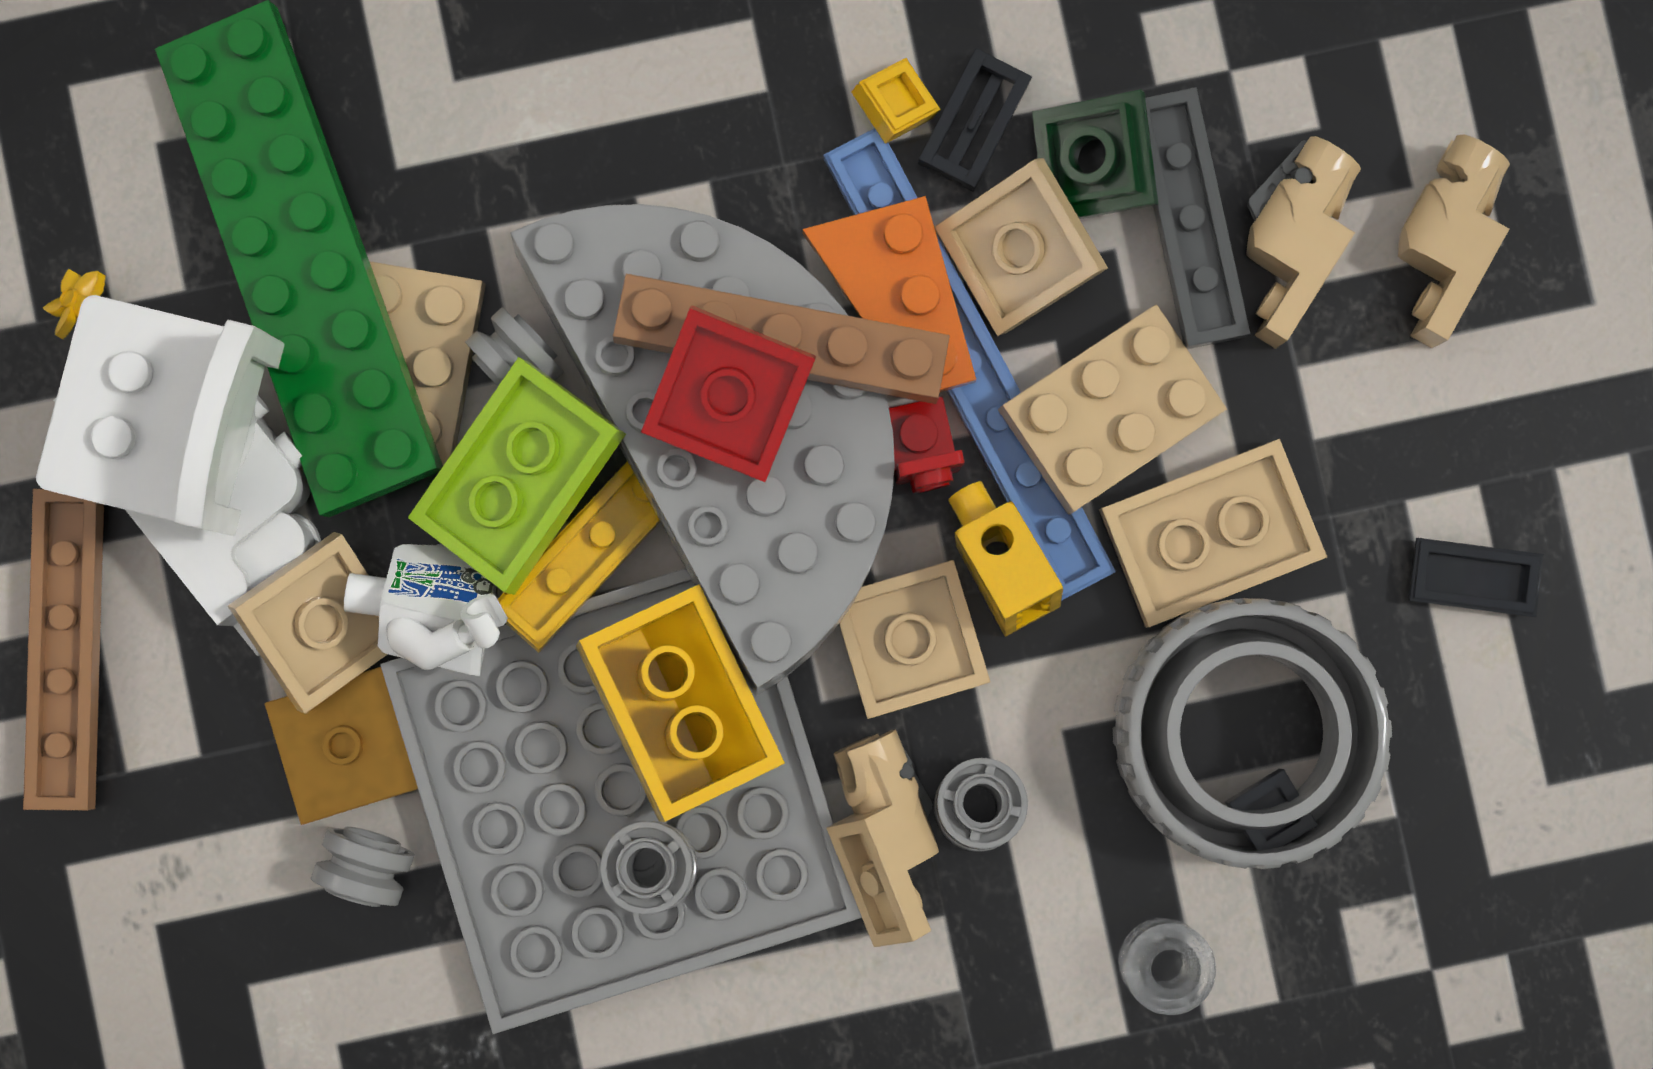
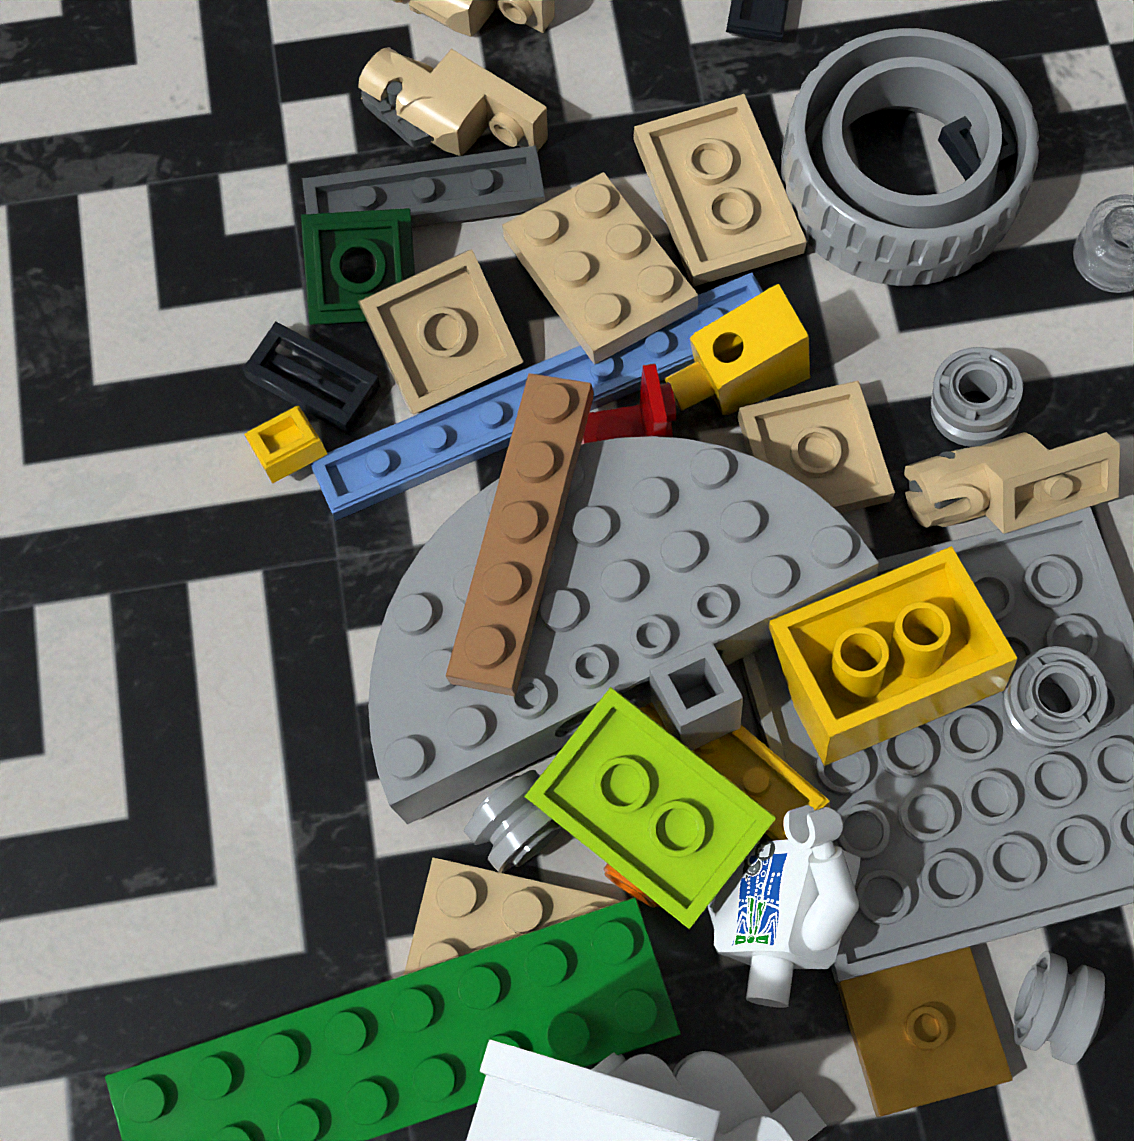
camera: 85 degrees left, 15 degrees down
(302, 625) = (799, 1055): tan plate -> none
(623, 515) = (696, 696): none -> light grey brick
(728, 393) = (580, 569): red plate -> none
(896, 275) = (450, 449): orange wing -> none

